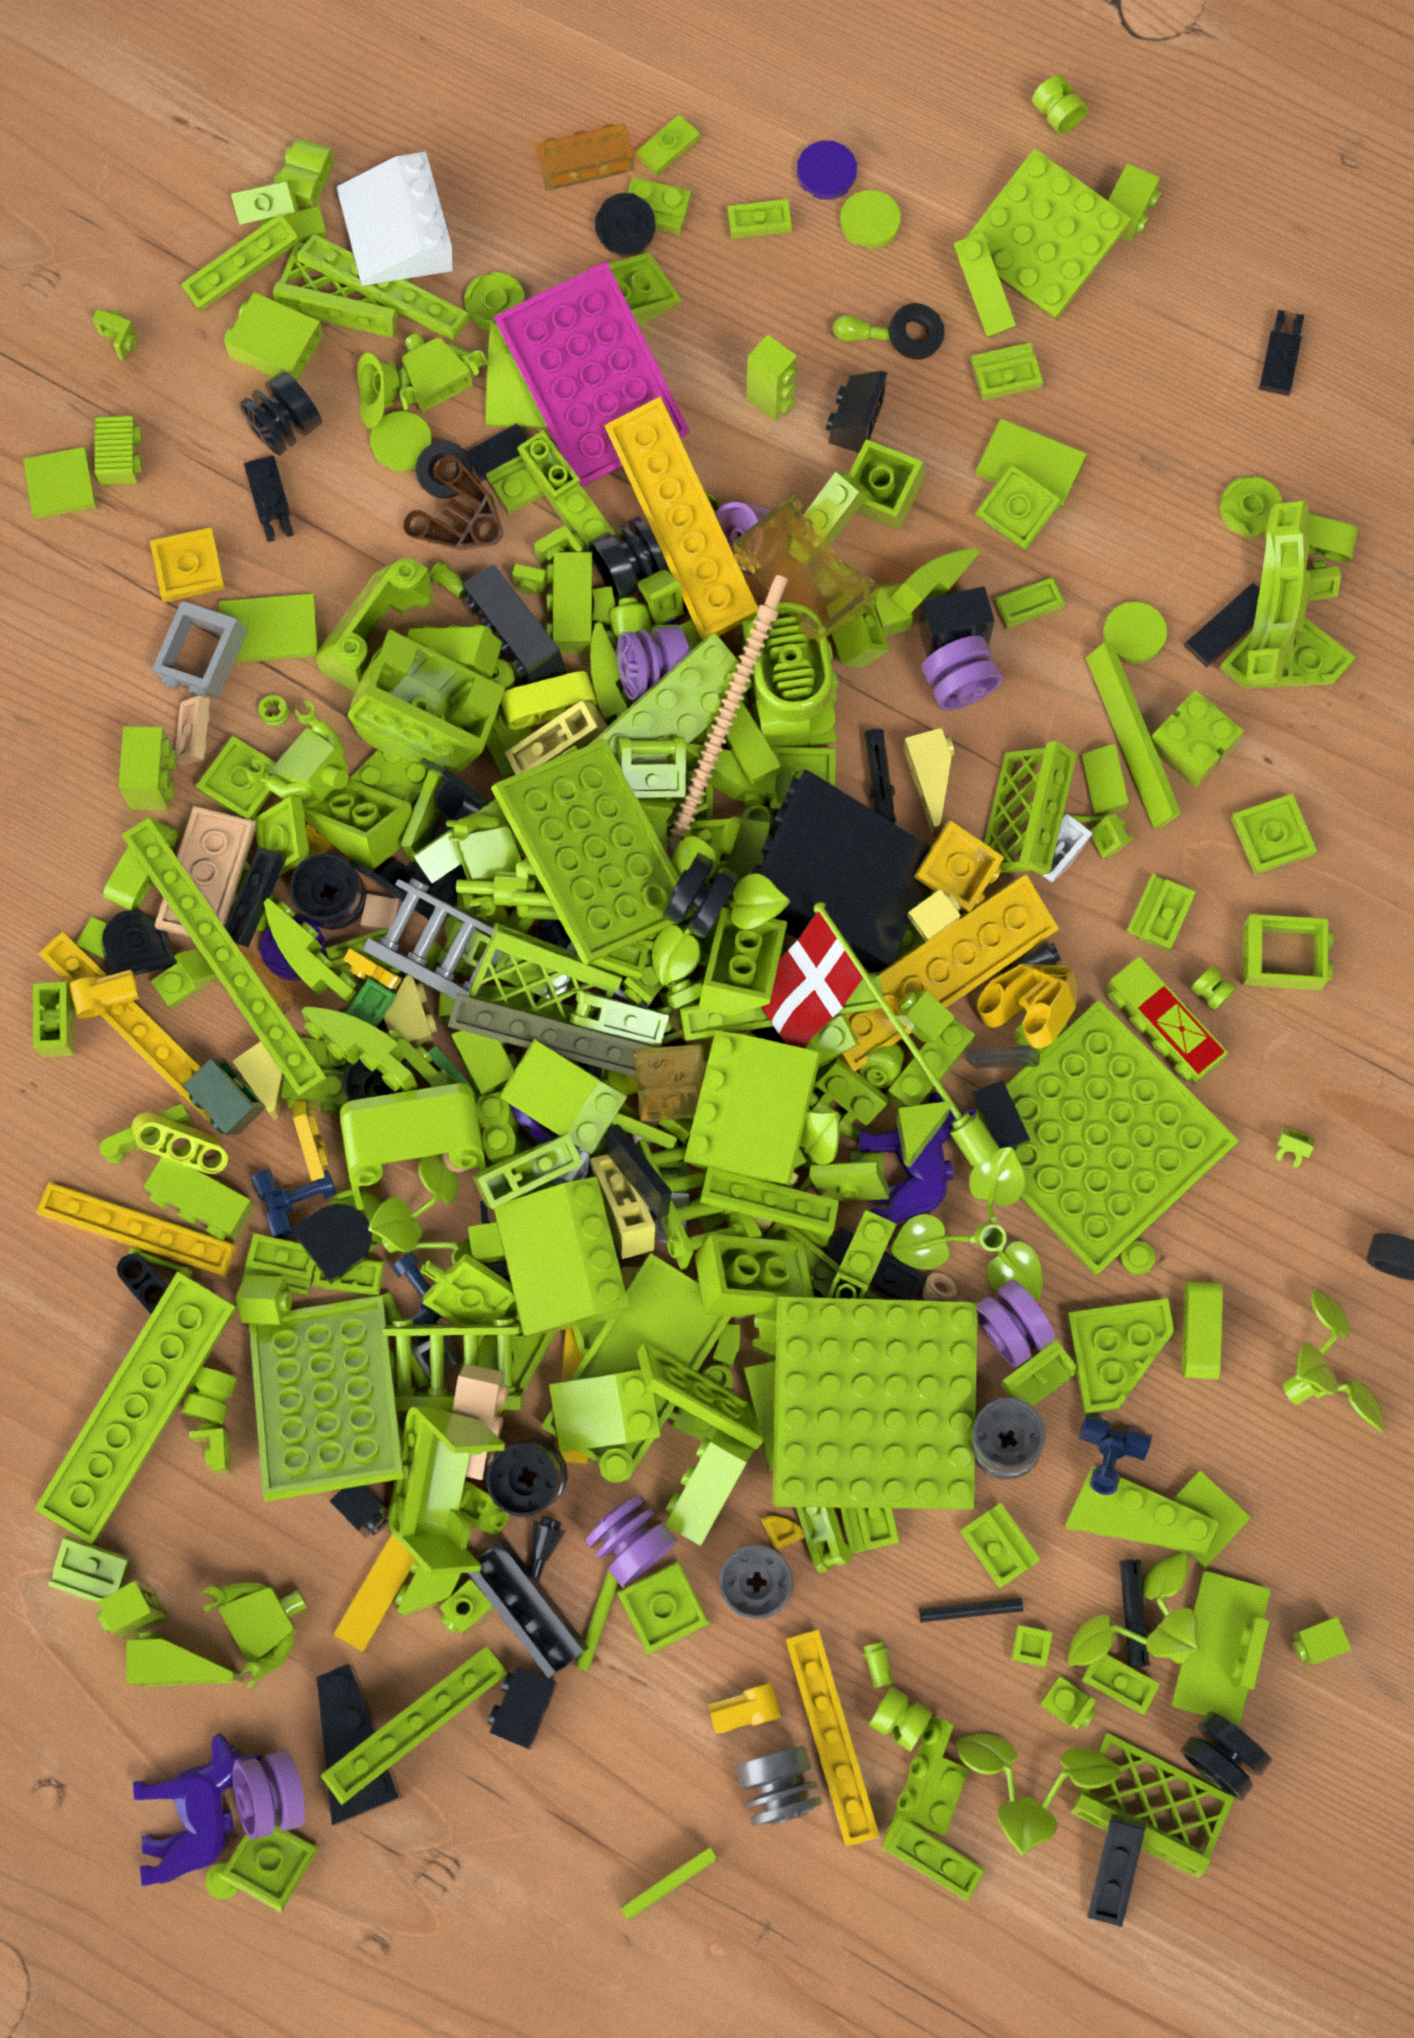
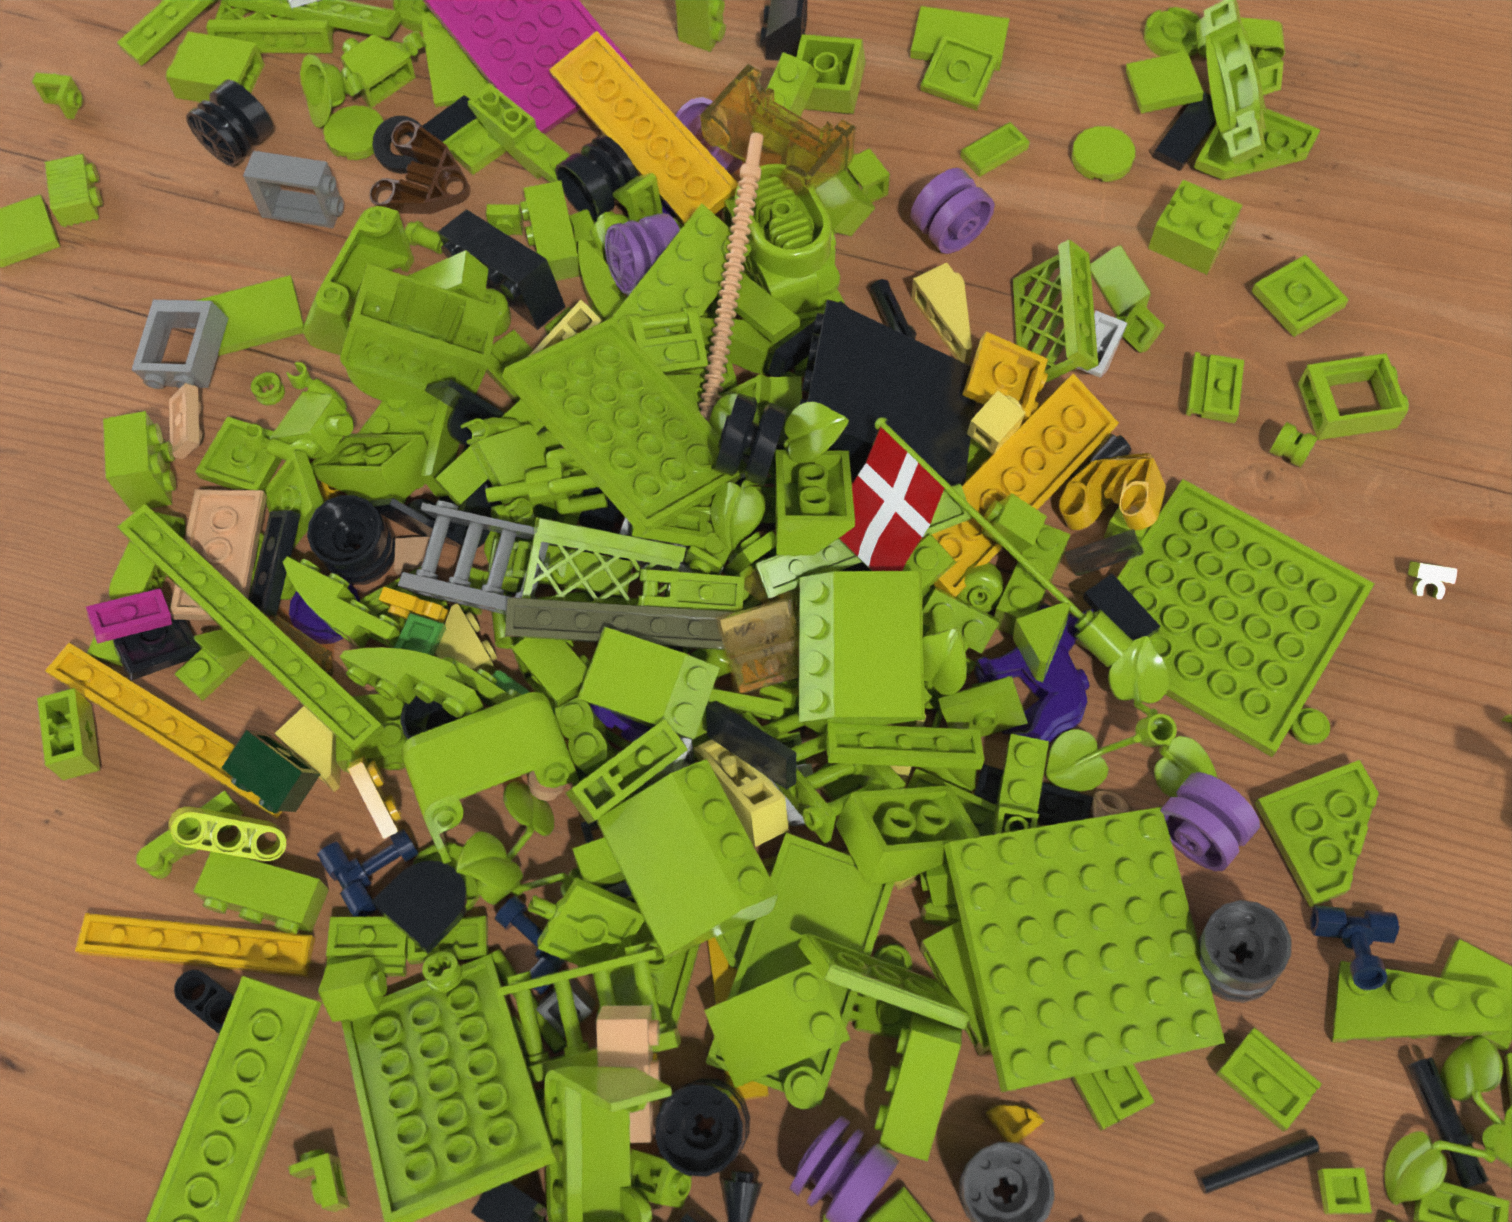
camera: 10 degrees left, 10 degrees down
(94, 995) = (109, 698): yellow piece -> none
(120, 921) = (128, 615): none -> dark pink plate
(135, 1250) = (228, 975): lime hinge -> none
(187, 565) = (158, 274): yellow plate -> none
(209, 1396) = (306, 1118): lime wheel -> none
(268, 494) = (232, 201): black hinge -> none
(332, 504) = (269, 170): none -> light grey window
(333, 1296) = (434, 966): none -> lime bush
(545, 699) = (534, 319): neon yellow beam -> none
(557, 541) = (525, 177): lime bracket -> none
(728, 1346) = (895, 922): lime piece -> none
(778, 790) = (792, 351): none -> black tile
(819, 1527) = (1059, 1105): lime plate -> none
(933, 579) = (899, 137): lime slope -> none
(955, 617) = (927, 158): black brick -> none
(1040, 1375) = (1250, 871): lime hinge -> none
(1133, 735) = (1135, 237): lime tile -> none
(1166, 1021) = (1257, 485): lime brick -> none
(1202, 1330) = (1407, 786): lime beam -> none
(1219, 565) = (1164, 82): none -> lime tile

